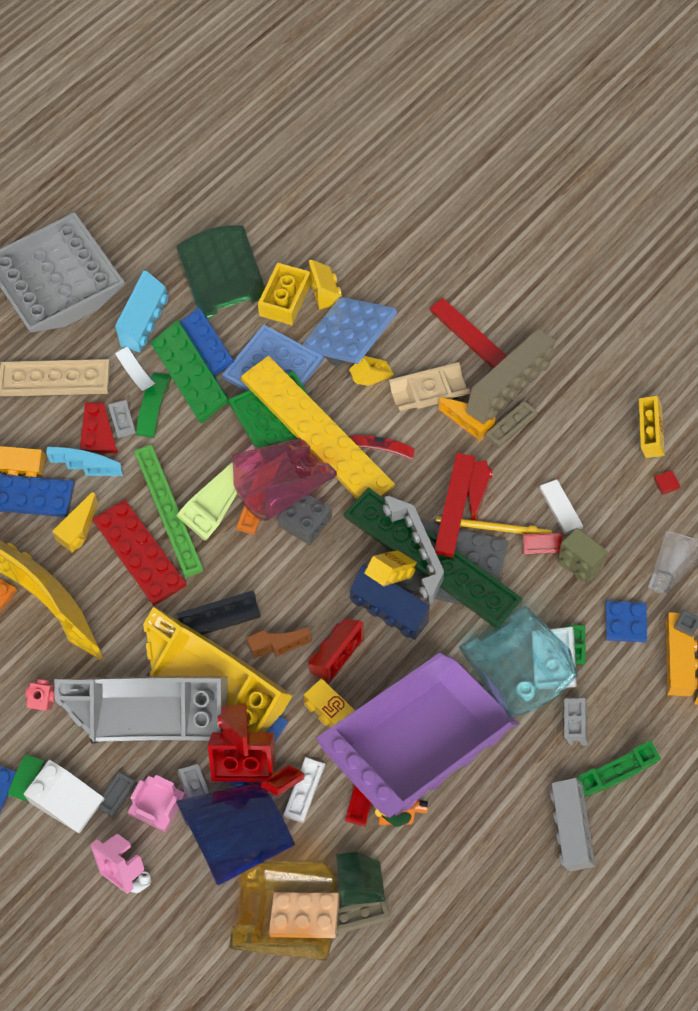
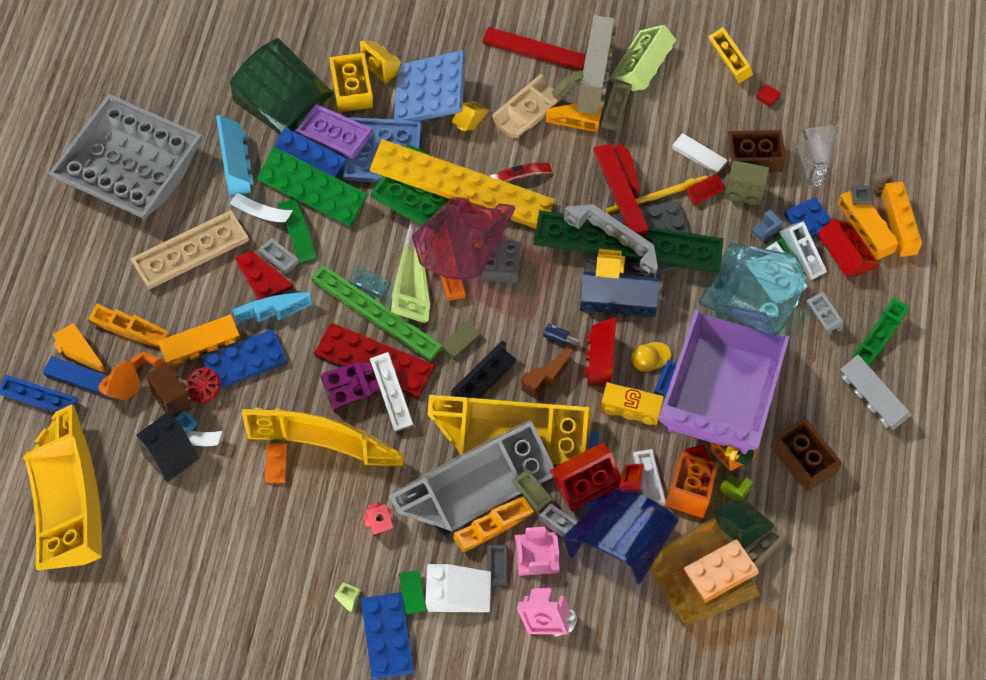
camera: 35 degrees left, 0 degrees up
(75, 527) = (304, 369): yellow slope -> none
(104, 564) = (355, 384): none -> magenta hips
(129, 588) = (391, 392): none -> white plate
(136, 755) = (494, 524): none -> light orange slope
(181, 480) = (370, 282): none -> clear light blue plate
(189, 742) = (532, 490): none -> olive tile
(224, 572) = (460, 340): none -> olive tile
(235, 726) = (572, 453): red slope -> none
(240, 331) = (334, 131): none -> medium lavender plate
(313, 612) = (559, 335): none -> dark blue piece
(327, 818) = (686, 488): none -> orange slope
(377, 843) = (736, 489): none -> lime panel
(382, 674) = (650, 356): none -> yellow cap
(462, 848) = (805, 454): none -> reddish brown brick
(466, 382) = (567, 85): none -> olive plate
(567, 391) = (644, 57): none -> yellowish green slope
(579, 609) = (768, 227): none -> sand blue panel
(597, 649) = (800, 242): none -> white slope
(614, 529) = (756, 148): none -> reddish brown brick
(644, 668) = (847, 248): none -> red slope

